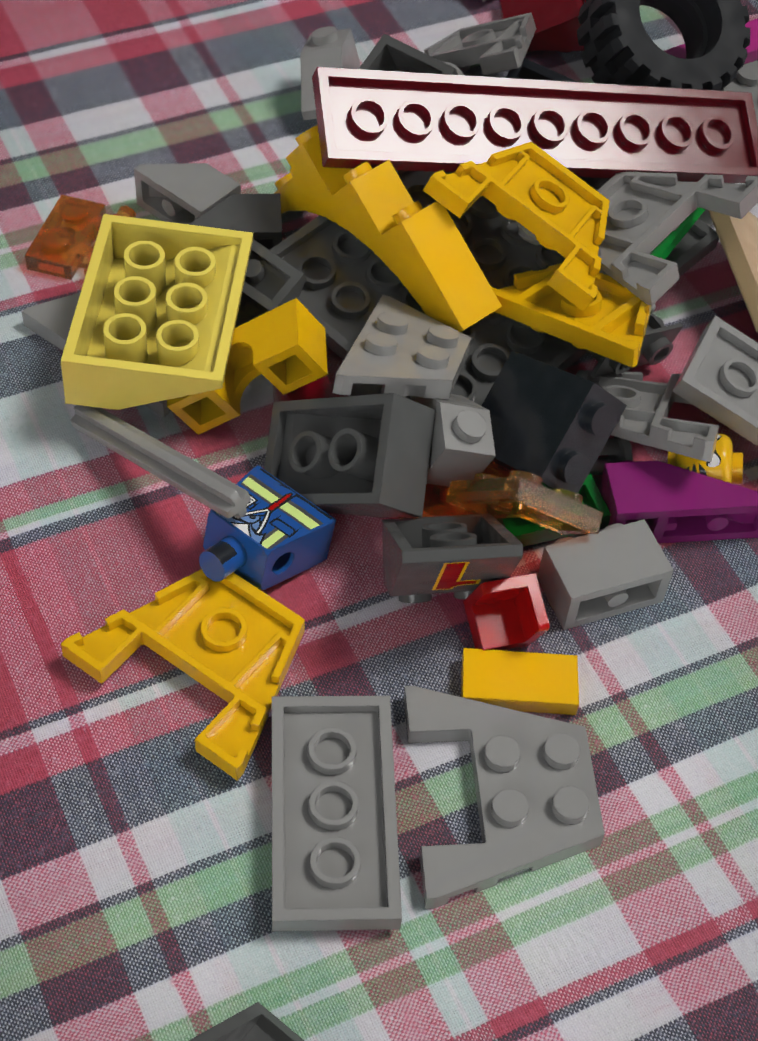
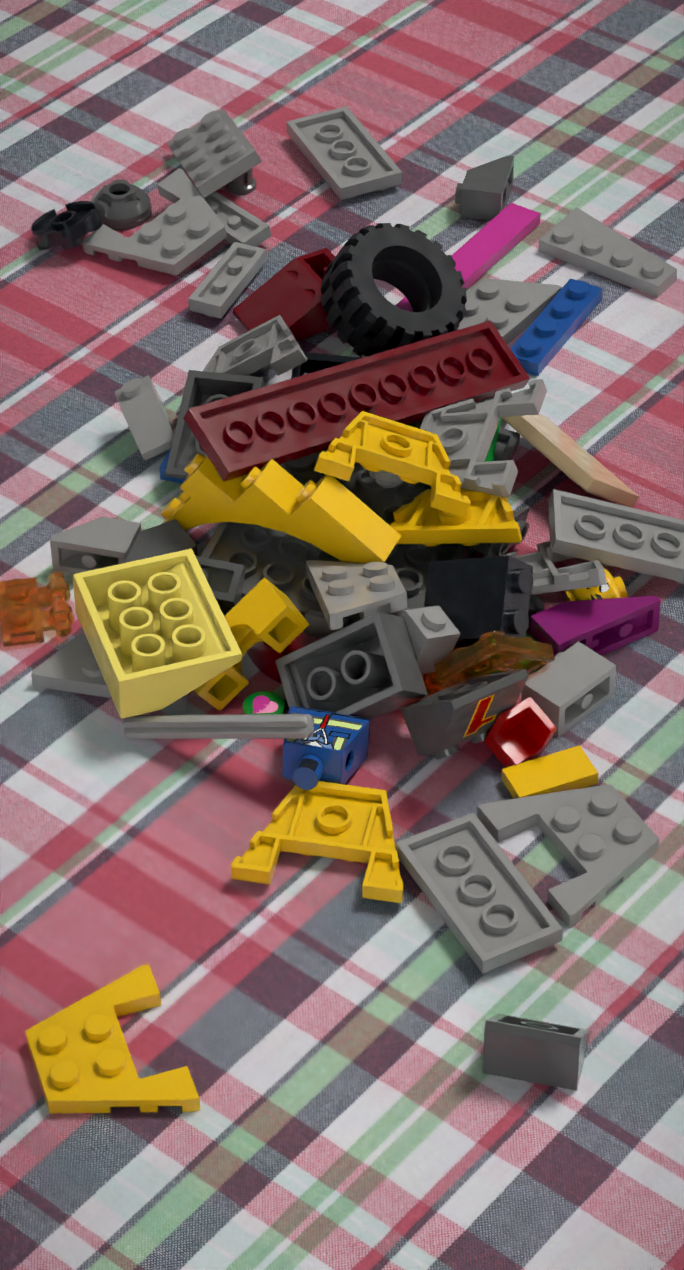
camera: 20 degrees left, 10 degrees down
(239, 453) = (263, 703): none -> tile

